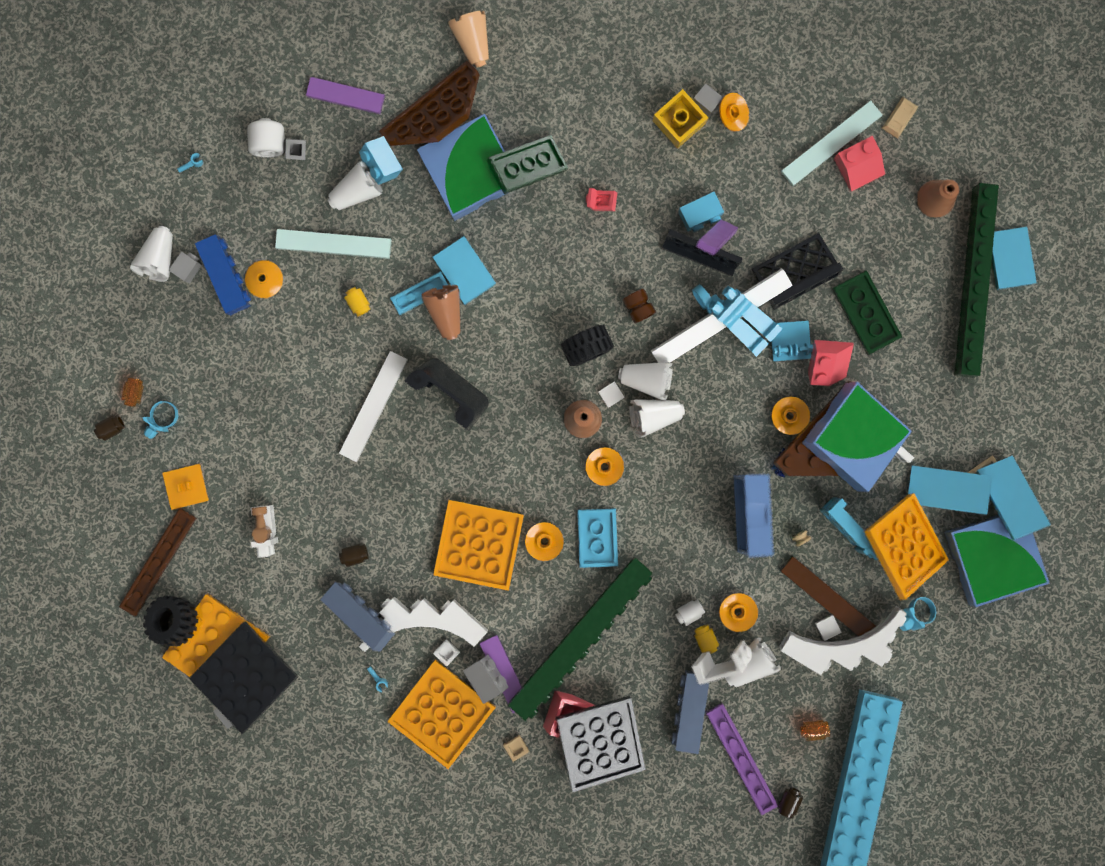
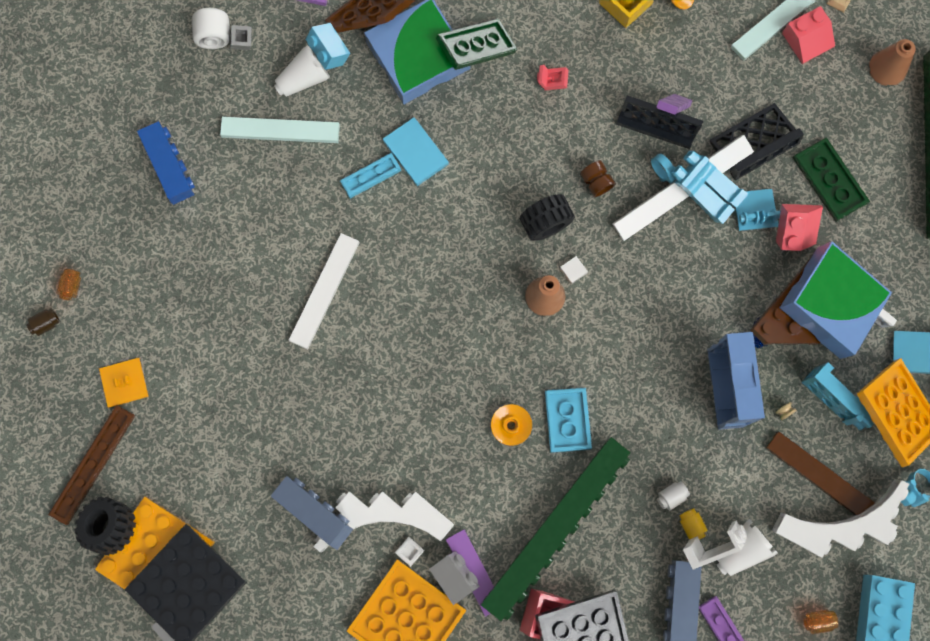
camera: 10 degrees left, 10 degrees down
(151, 431) = (88, 323): medium azure piece -> none
(155, 255) = (95, 146): white cone -> none
(185, 266) = (127, 156): light grey brick -> none
(191, 163) = (140, 57): medium azure hand -> none
(265, 530) = (209, 423): hips -> none
(272, 282) = (214, 173): light orange dish -> none
(354, 555) = (306, 447): dark brown brick -> none
(357, 301) = (305, 185): yellow brick -> none
(378, 680) = (334, 584): medium azure hand -> none
(444, 309) = (397, 189): nougat cone -> none
(471, 400) = (427, 280): black windscreen -> none
(478, 545) = (440, 431): light orange plate -> none
(614, 470) = (576, 334): light orange dish -> none
(648, 378) = (612, 250): white cone -> none
(654, 415) = (620, 287): white cone -> none
(701, 212) = (654, 85): medium azure brick -> none
(748, 614) = (735, 490): light orange dish -> none
(800, 414) = (769, 277): light orange dish -> none
(828, 627) = (823, 507): white tile -> none

